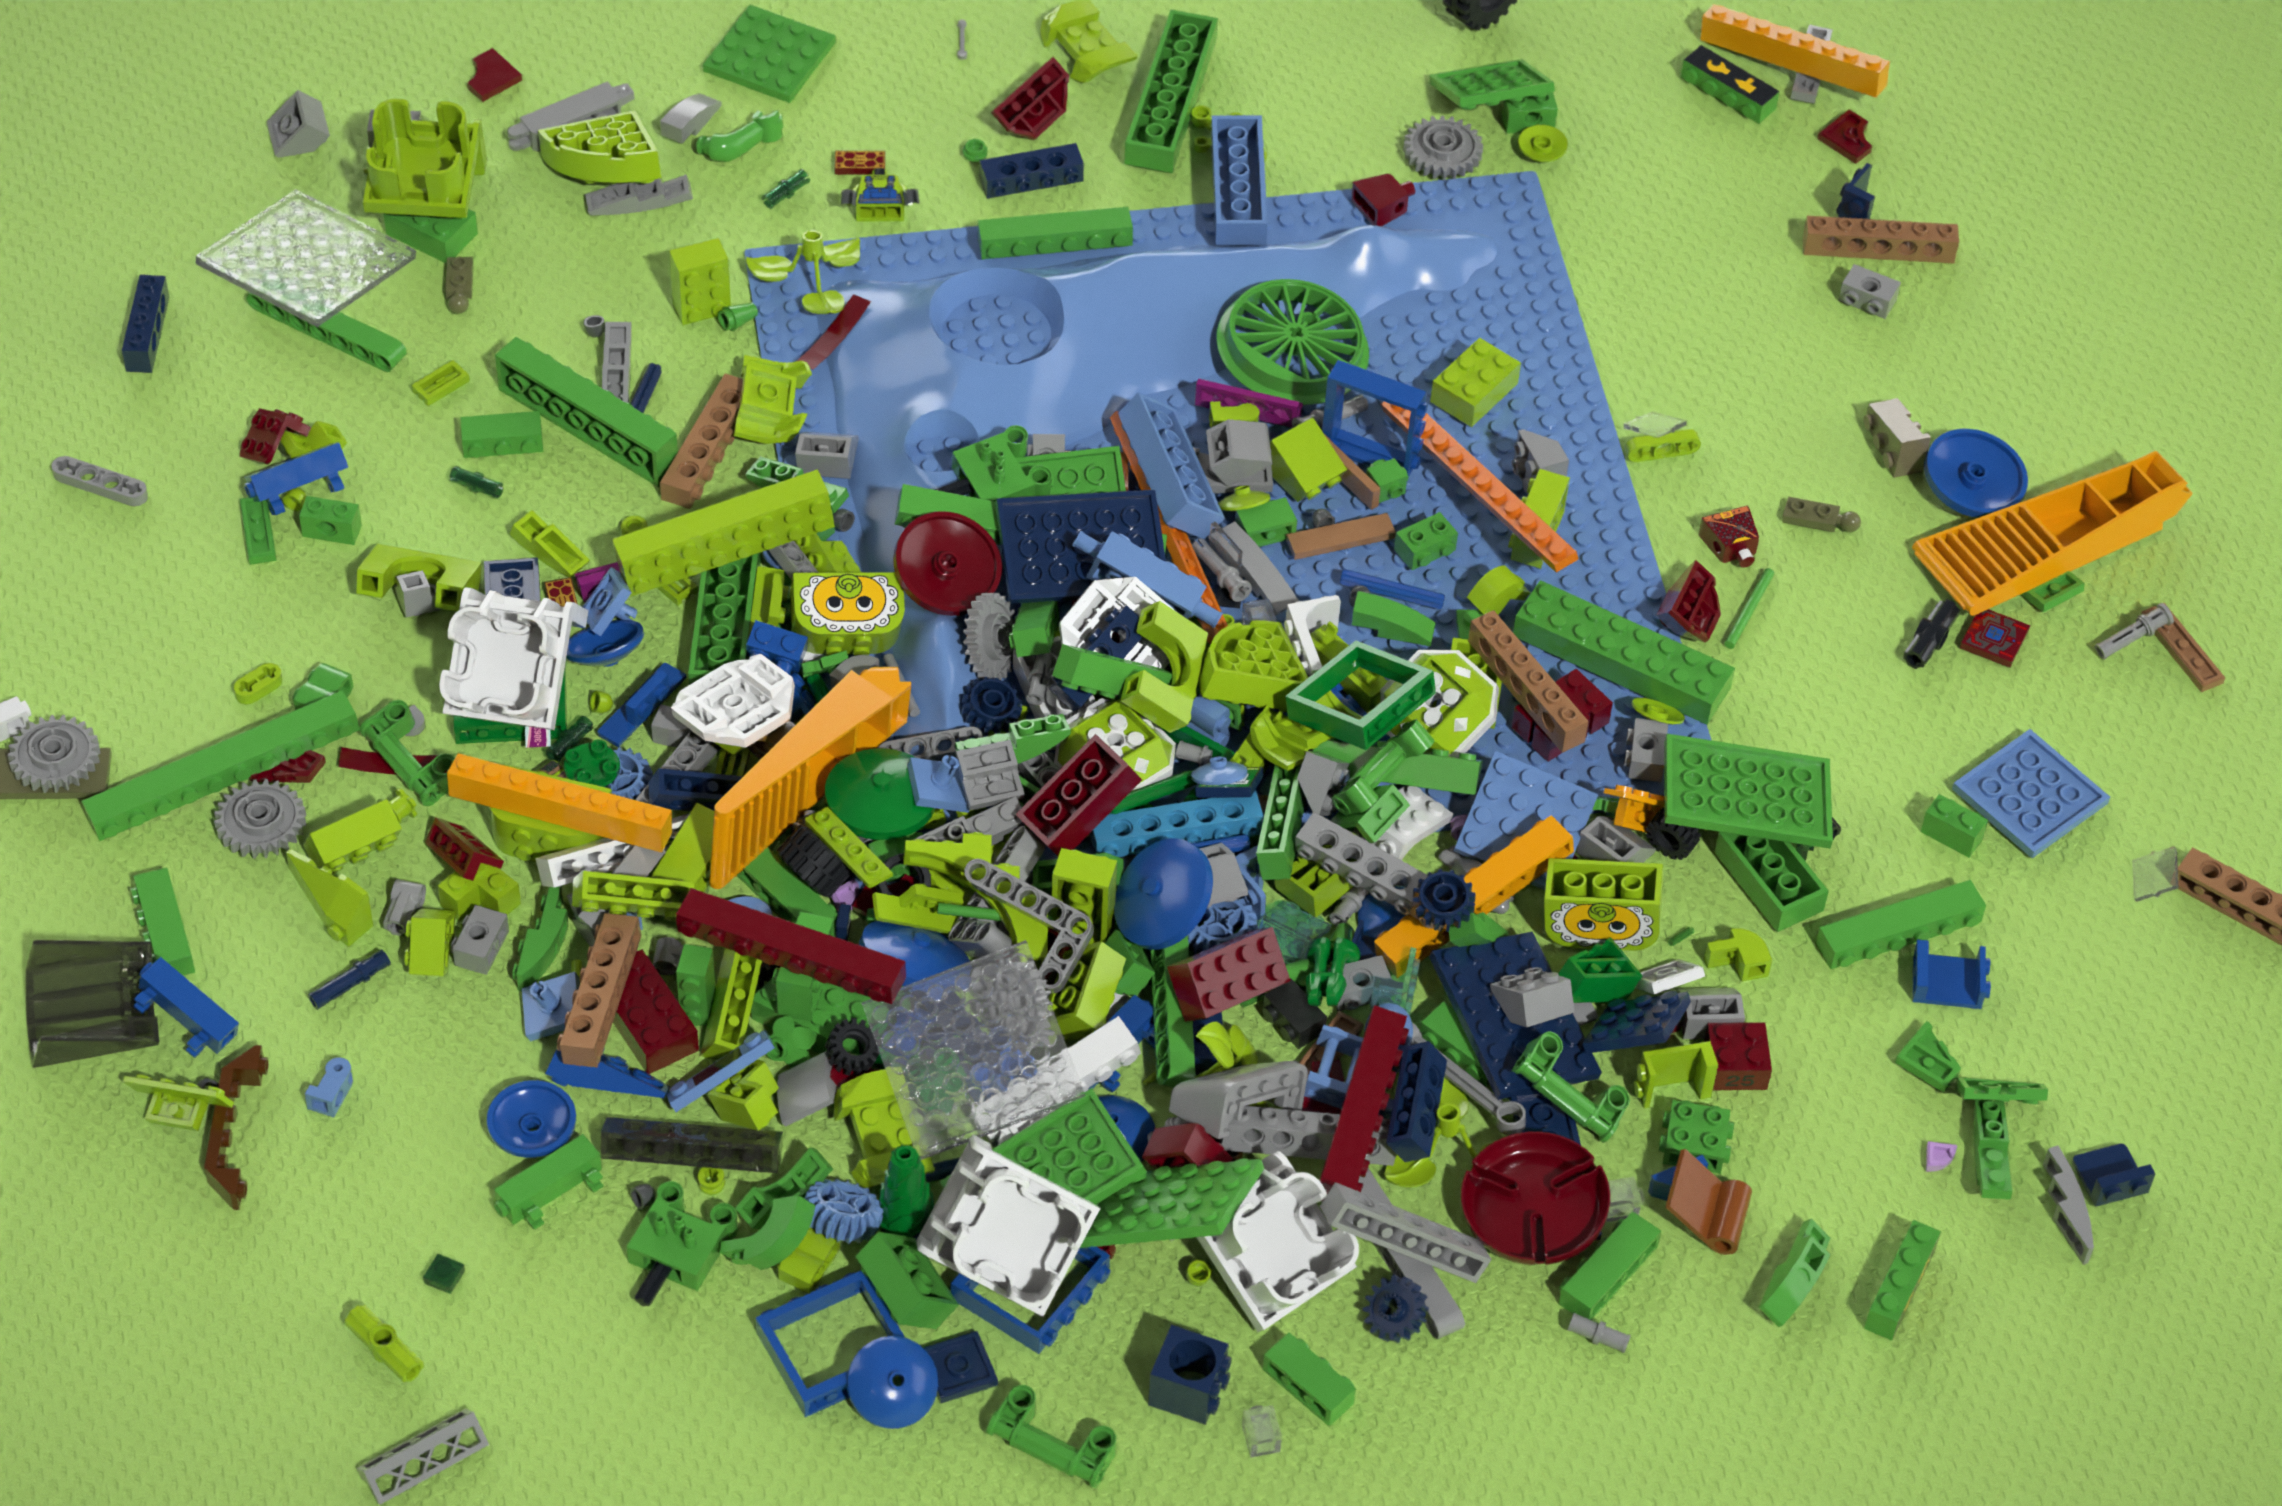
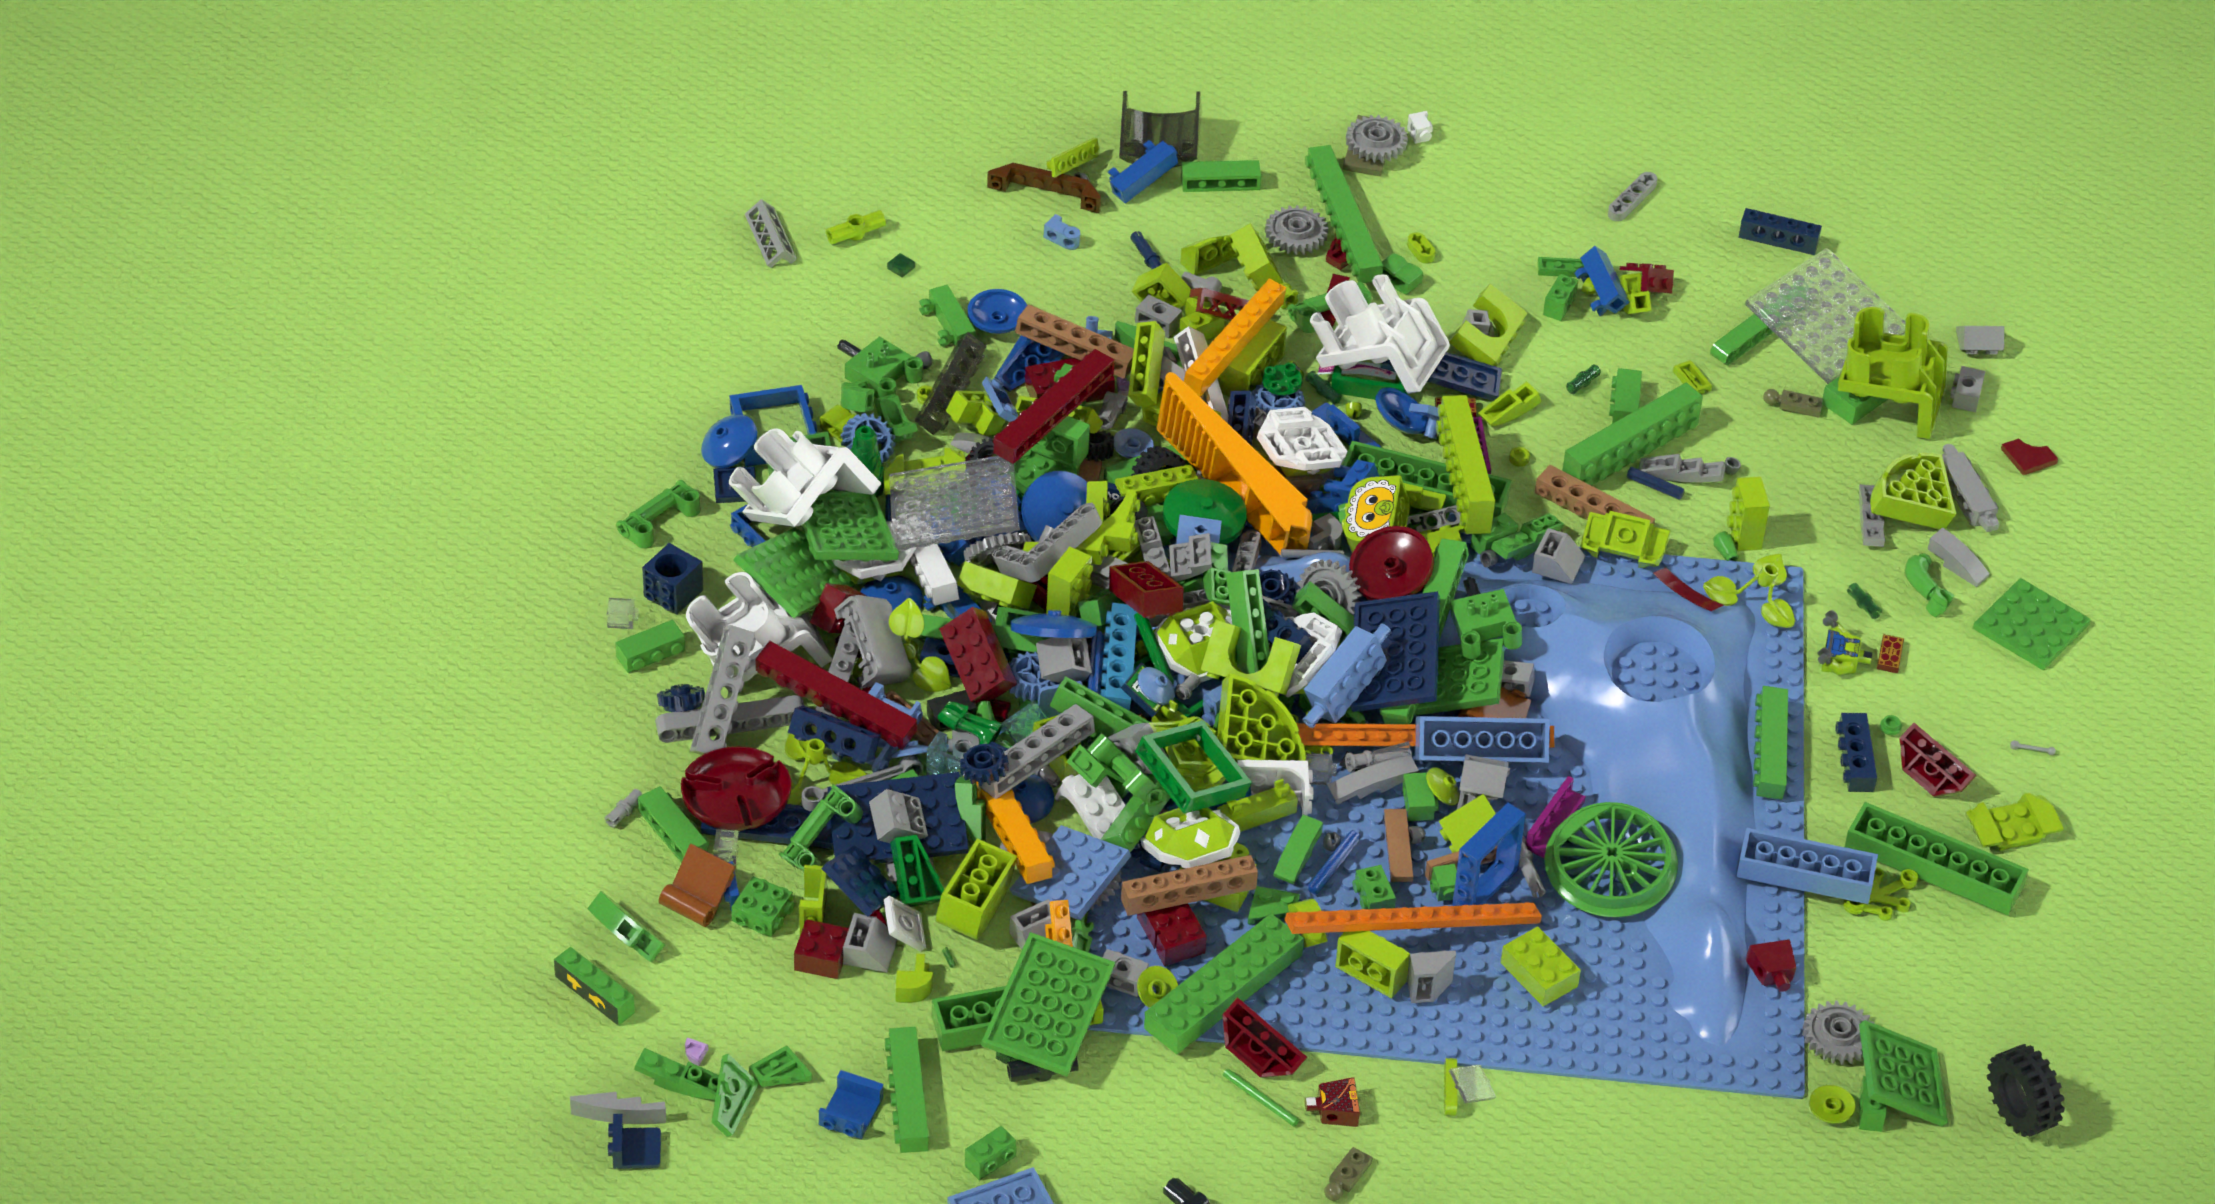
camera: 105 degrees right, 5 degrees down
(1244, 412) = (1537, 798): lime leg -> none

